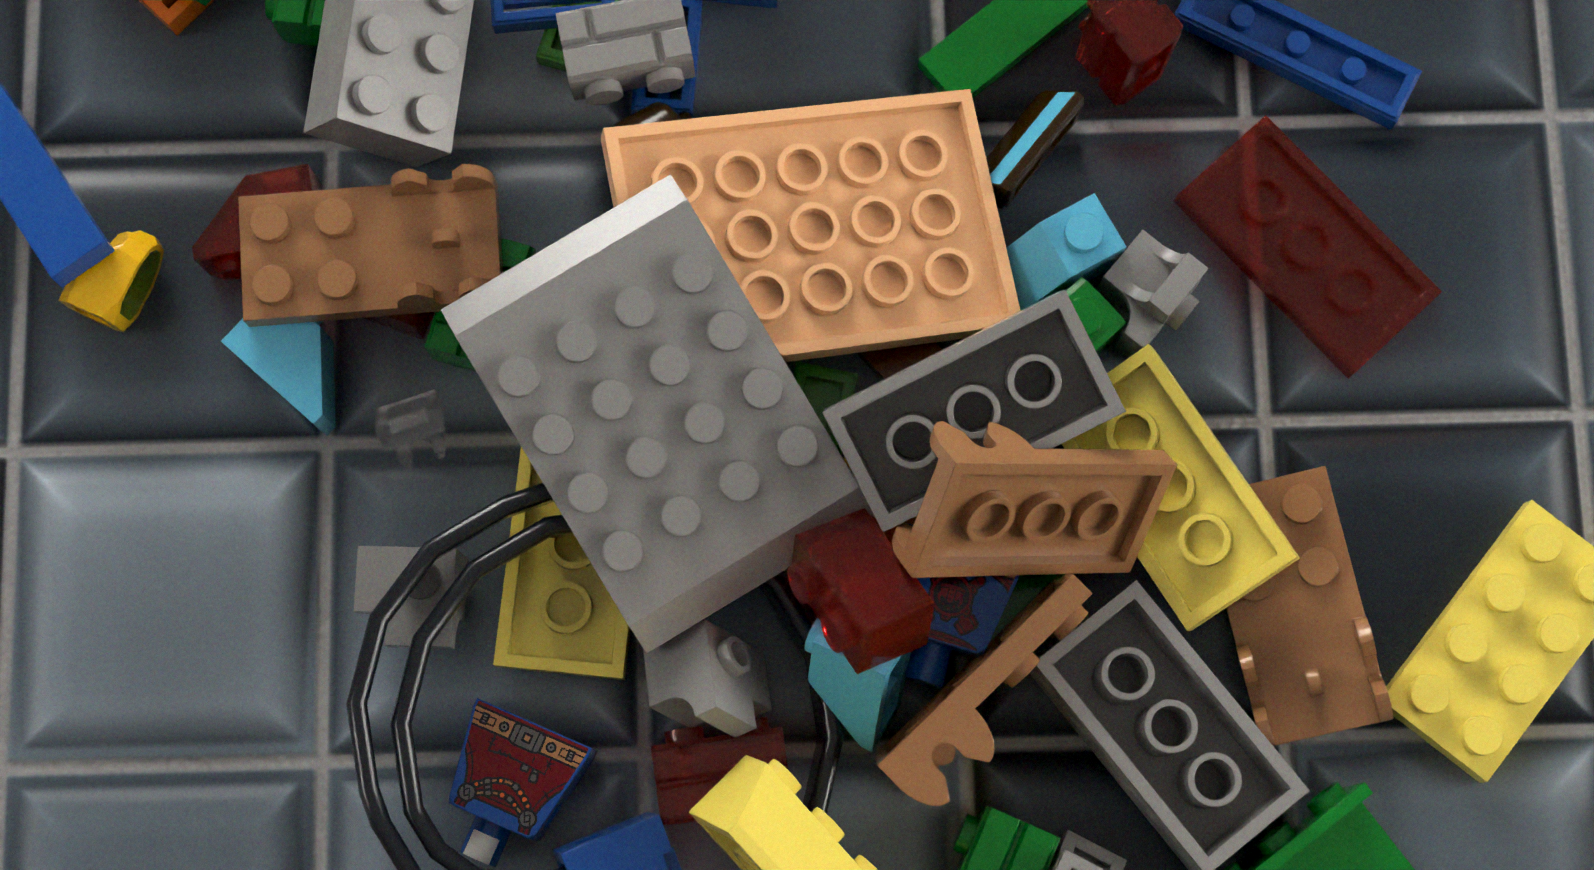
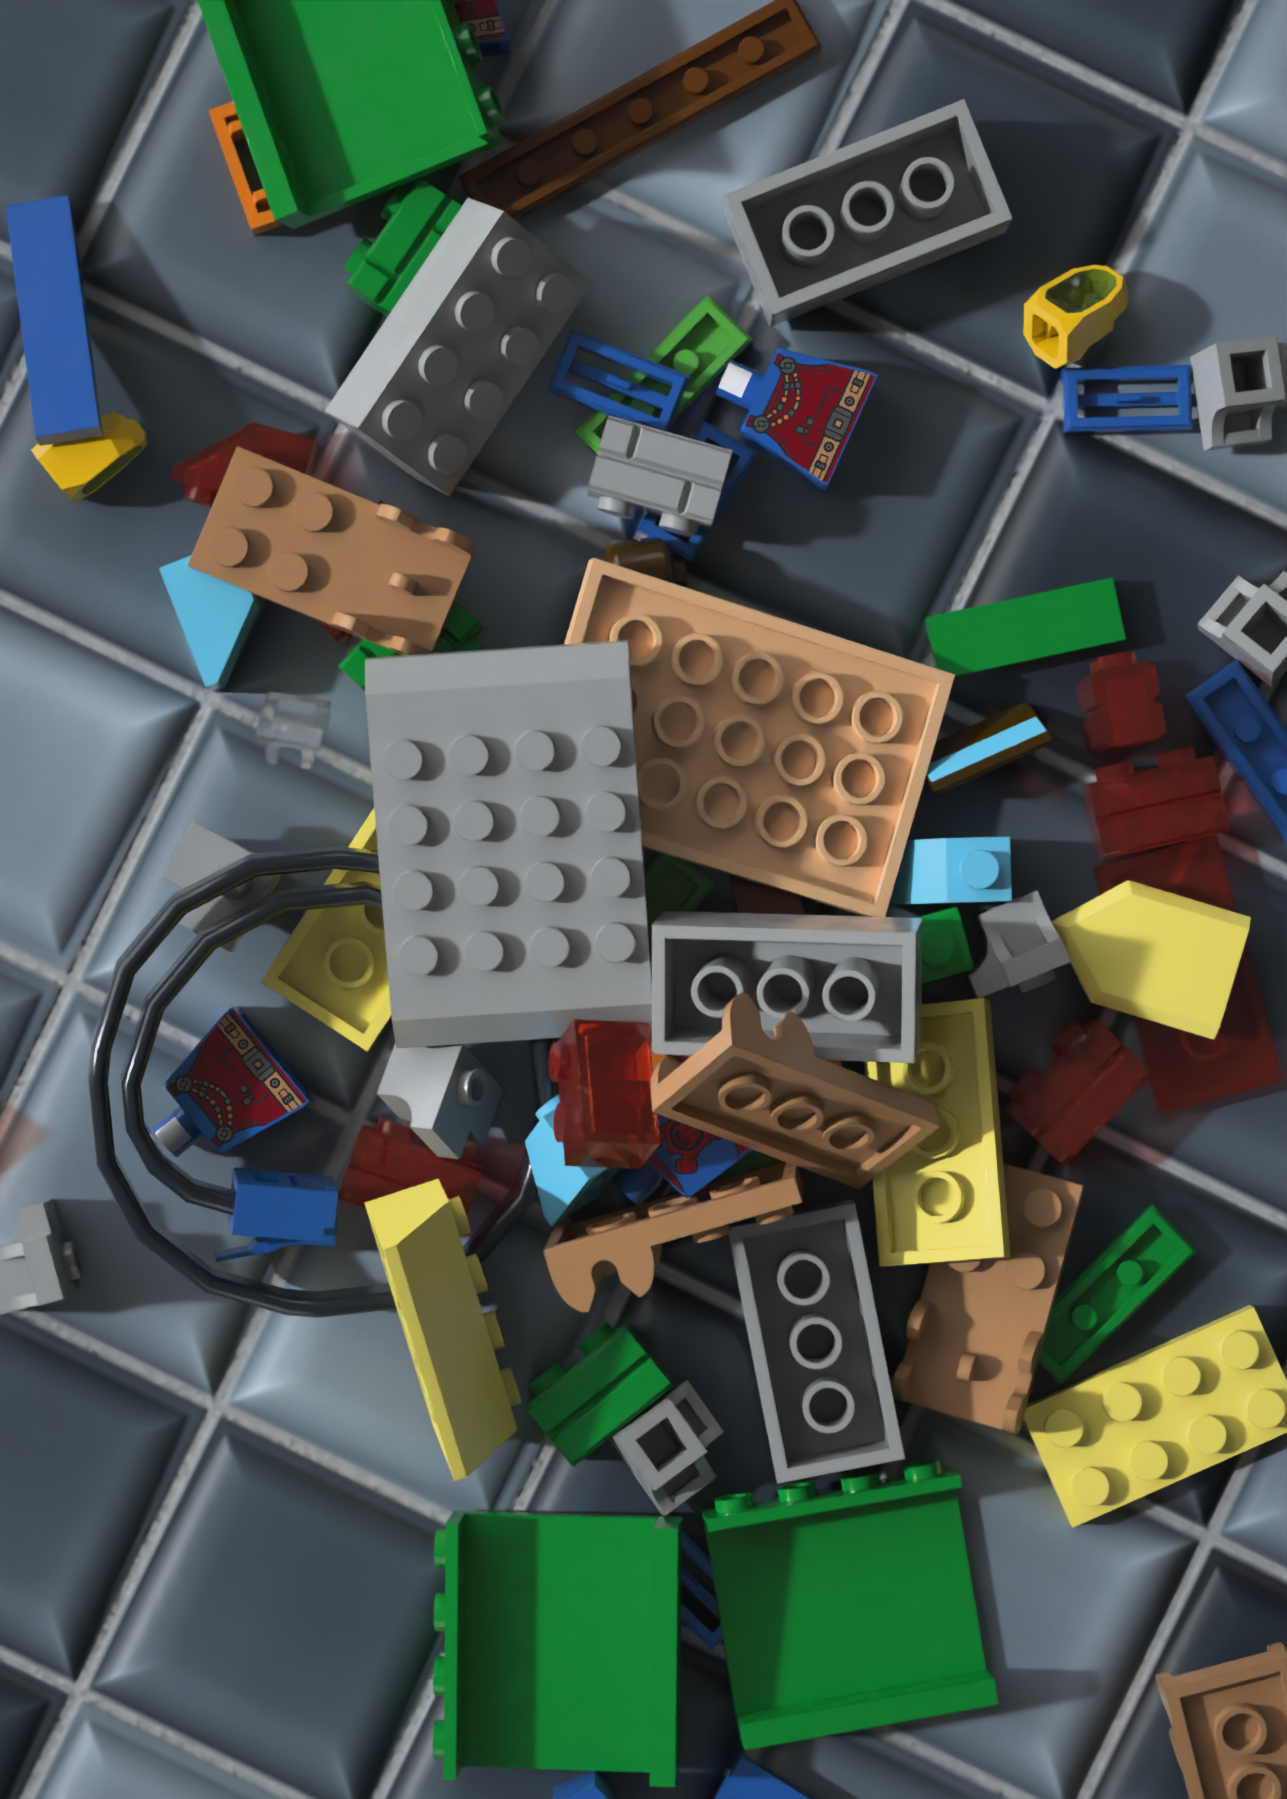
camera: 30 degrees right, 10 degrees up
(1201, 114) = (1155, 805): none -> clear red brick
(1270, 389) = (1075, 1090): none -> clear red brick
(1277, 238) = (1156, 955): none -> light yellow tile
(1399, 550) = (1112, 1290): none -> green tile

